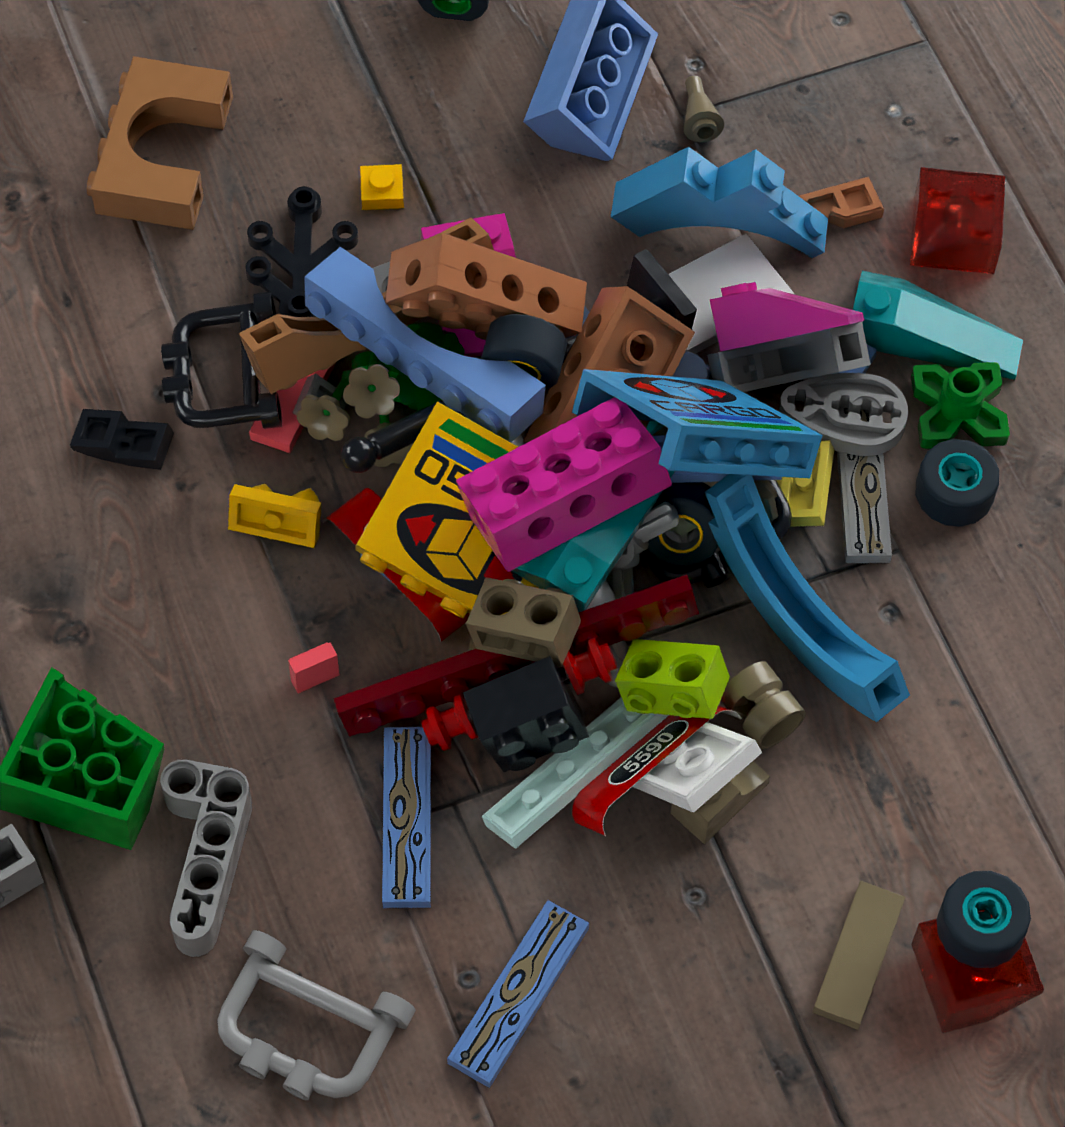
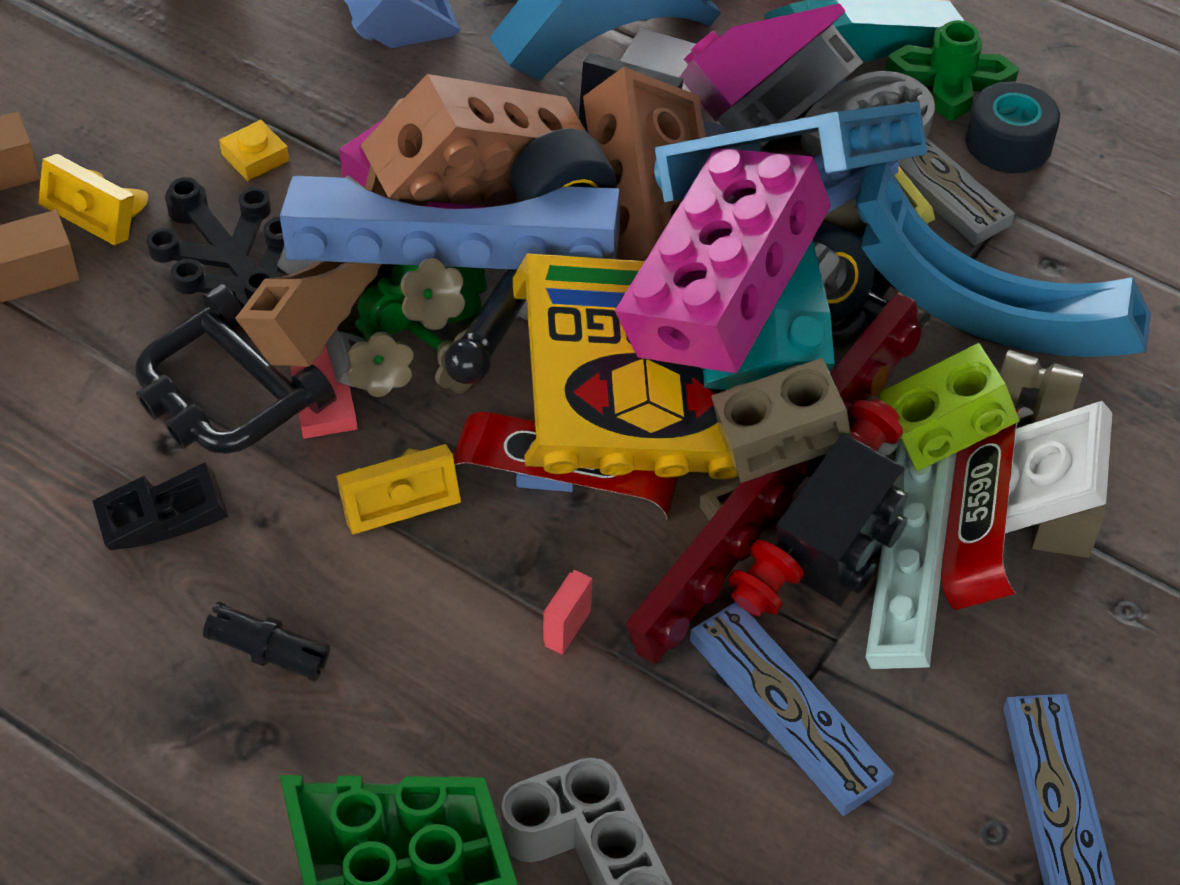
camera: 35 degrees left, 10 degrees down
(118, 572) = (266, 641): none -> black pin
(232, 162) = (89, 199): none -> yellow tile

